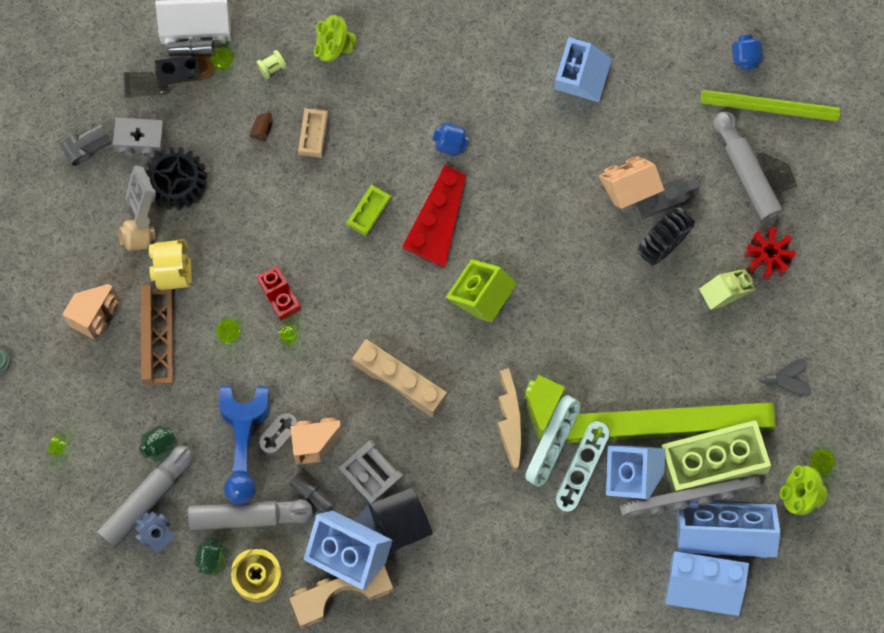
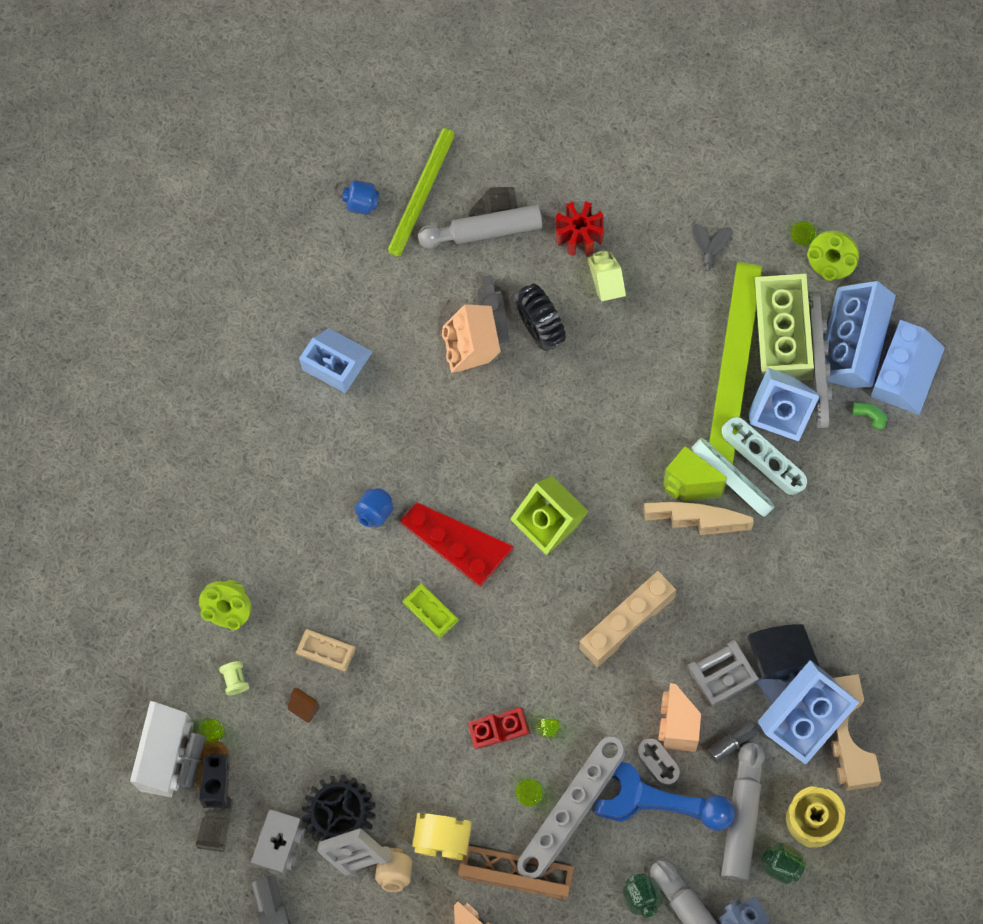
camera: 70 degrees left, 5 degrees down
(218, 367) = (571, 808): none -> light grey plate
(655, 559) = (873, 411): none -> bright green arm

